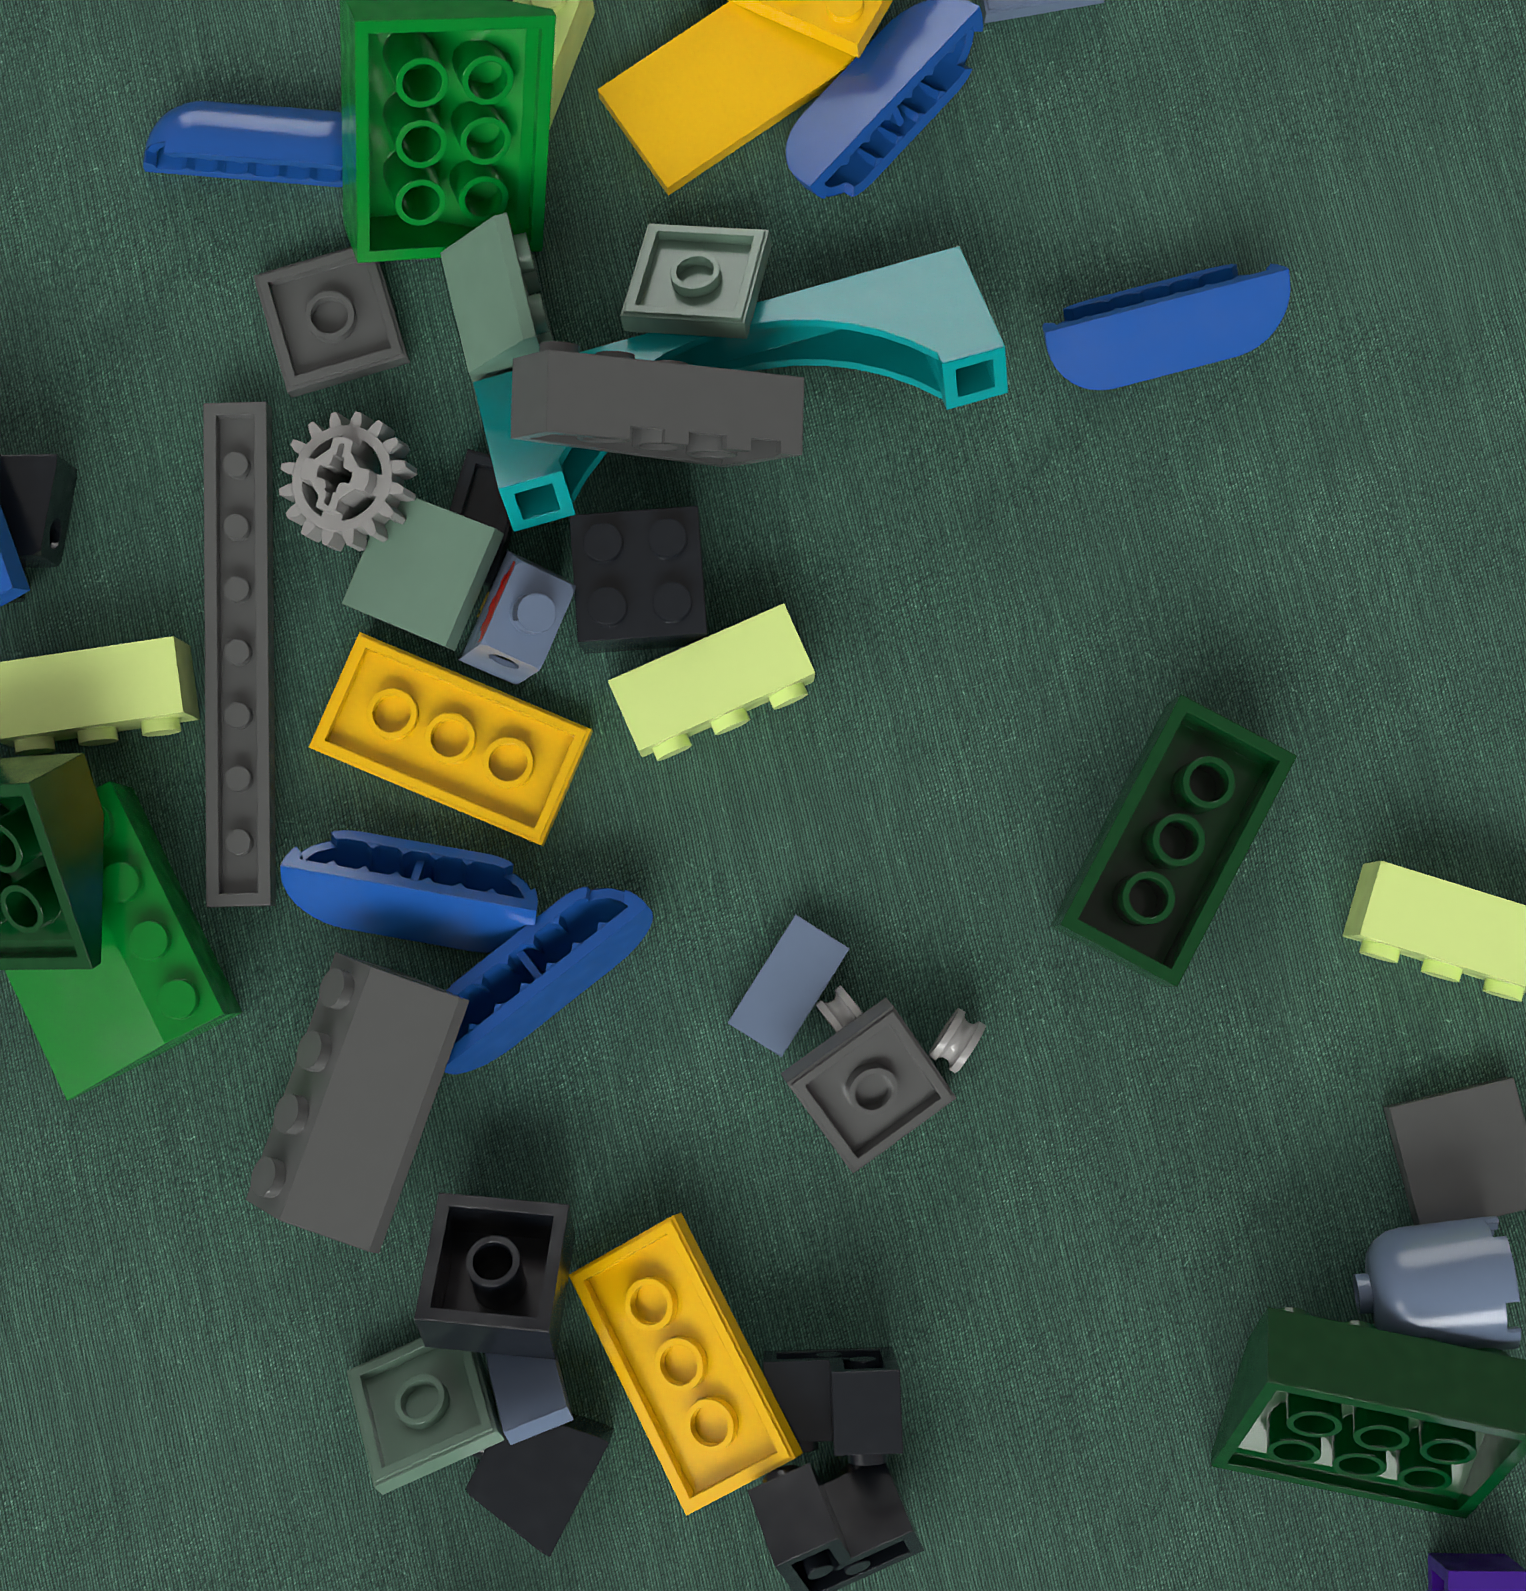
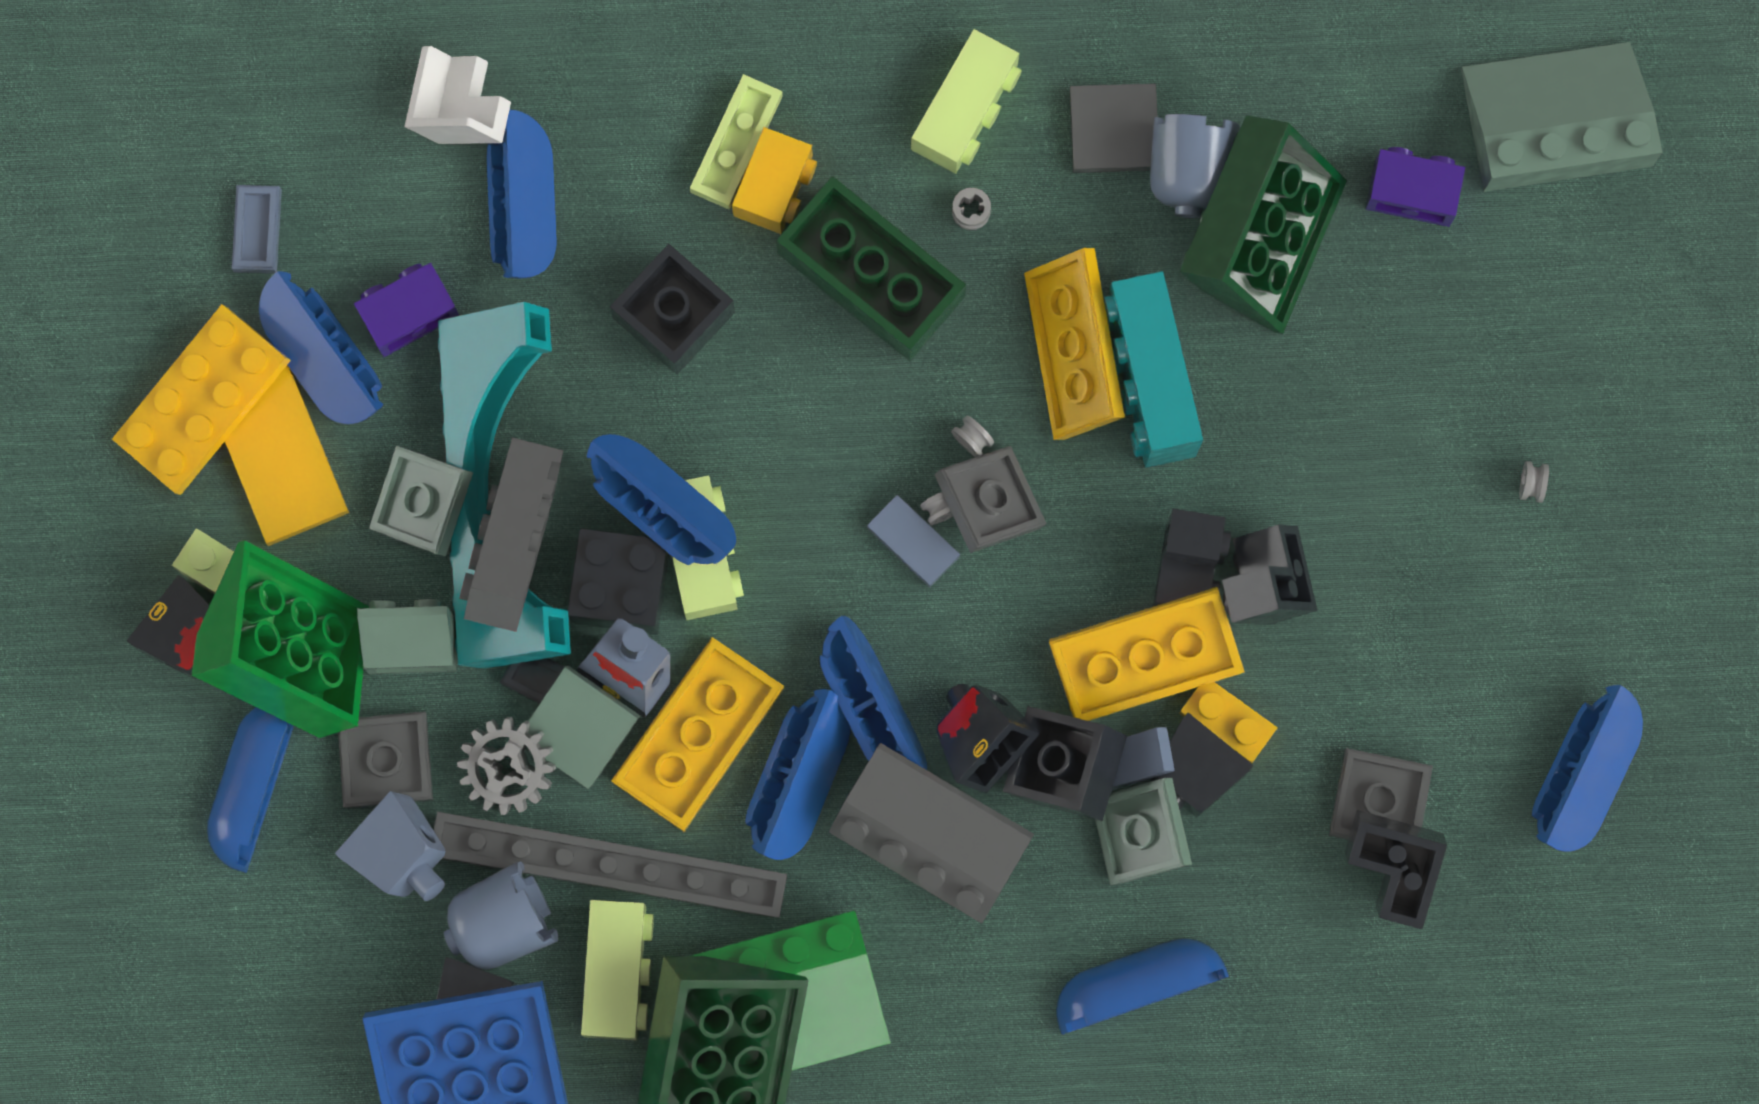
camera: 80 degrees left, 5 degrees down
(126, 520) = (499, 919): none -> sand blue cylinder
(196, 354) = (396, 849): none -> sand blue torso
(213, 1441) = (1137, 982): none -> blue brick
(516, 1145) = (982, 735): none -> black torso
(617, 1500) = (1230, 719): none -> yellow plate
(757, 609) = (660, 501): none -> blue brick
(969, 200) = (405, 308): none -> dark purple brick
(1049, 570) = (672, 309): none -> black brick
(1112, 1289) = (1153, 370): none -> teal brick
(1125, 1164) = (1074, 344): none -> yellow tile
(1272, 676) = (773, 181): none -> yellow brick
(1282, 191) = (449, 102): none -> white panel
(1312, 960) = (967, 196): none -> light grey bush
(1317, 610) = (735, 141): none -> yellowish green plate

